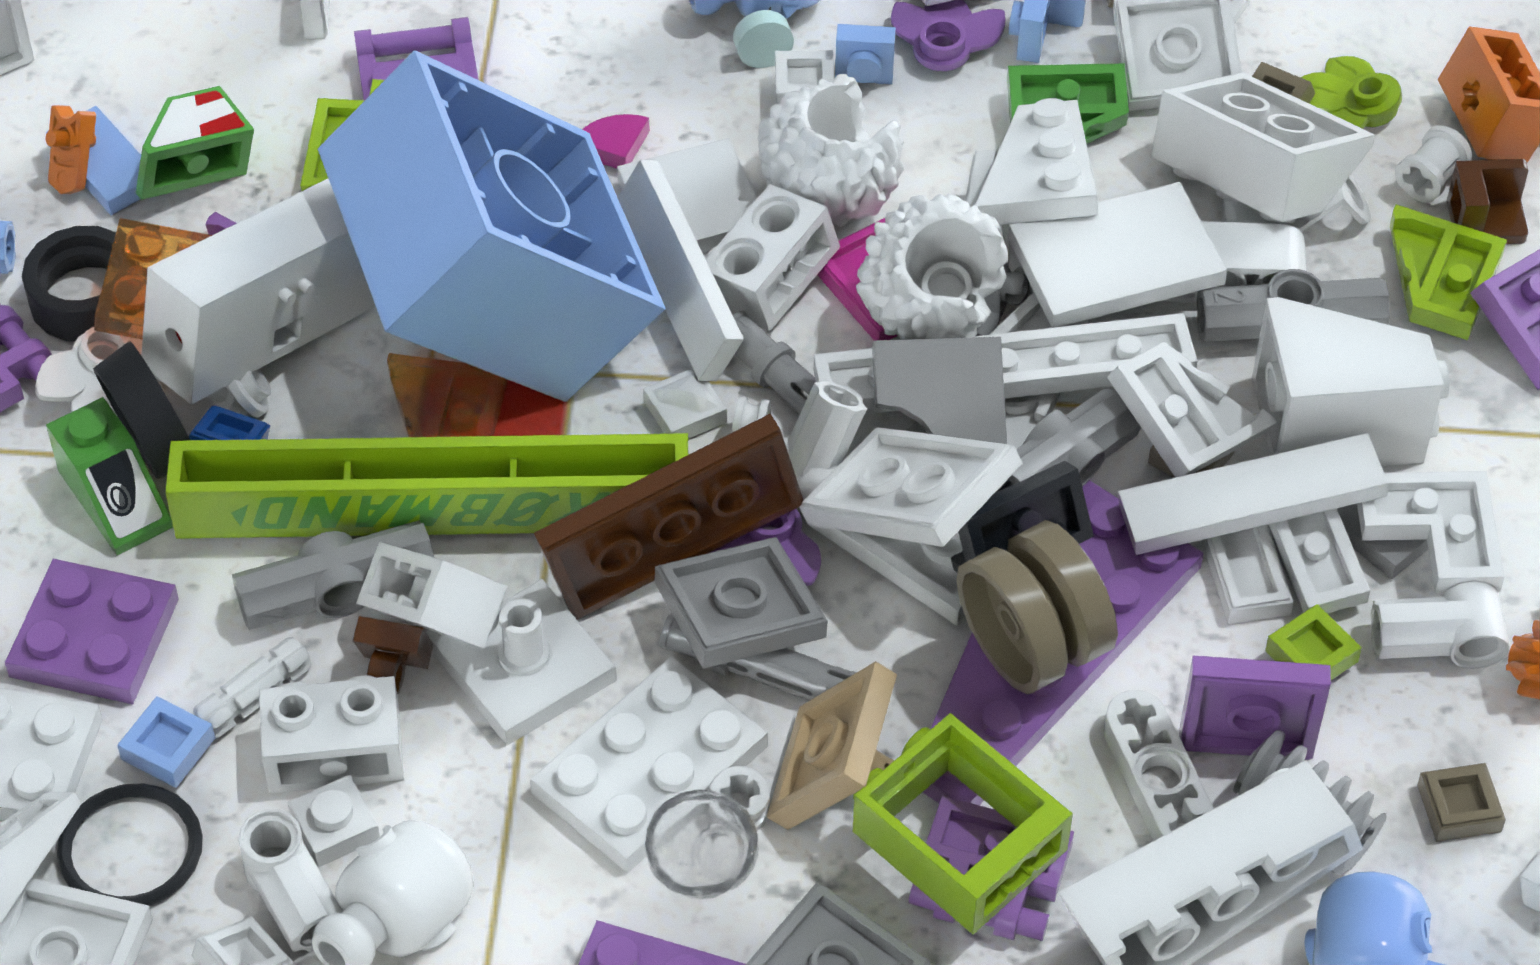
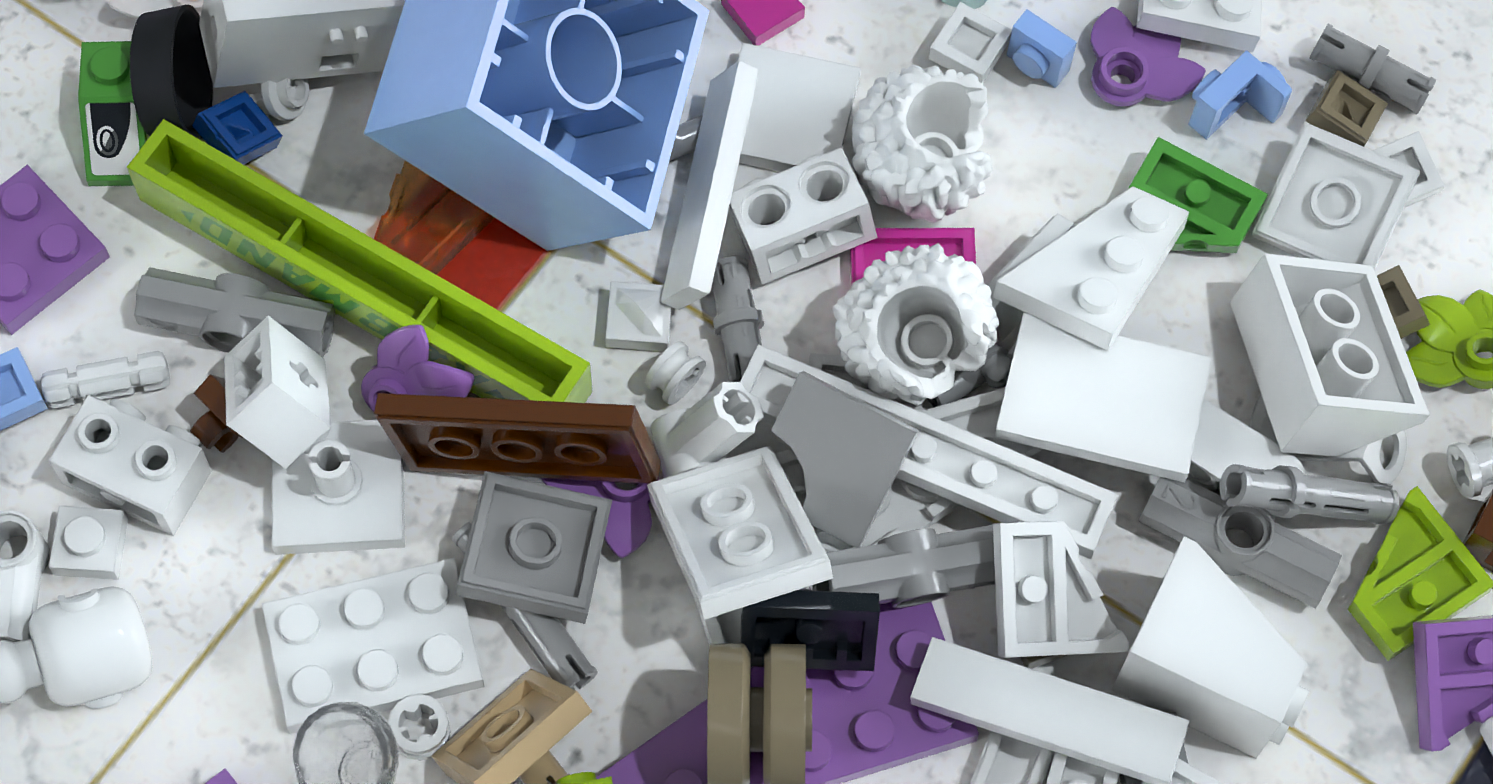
camera: 30 degrees right, 15 degrees up
(516, 518) = (405, 369): none -> medium lavender plate
(1312, 245) = (1289, 492): none -> light grey pin

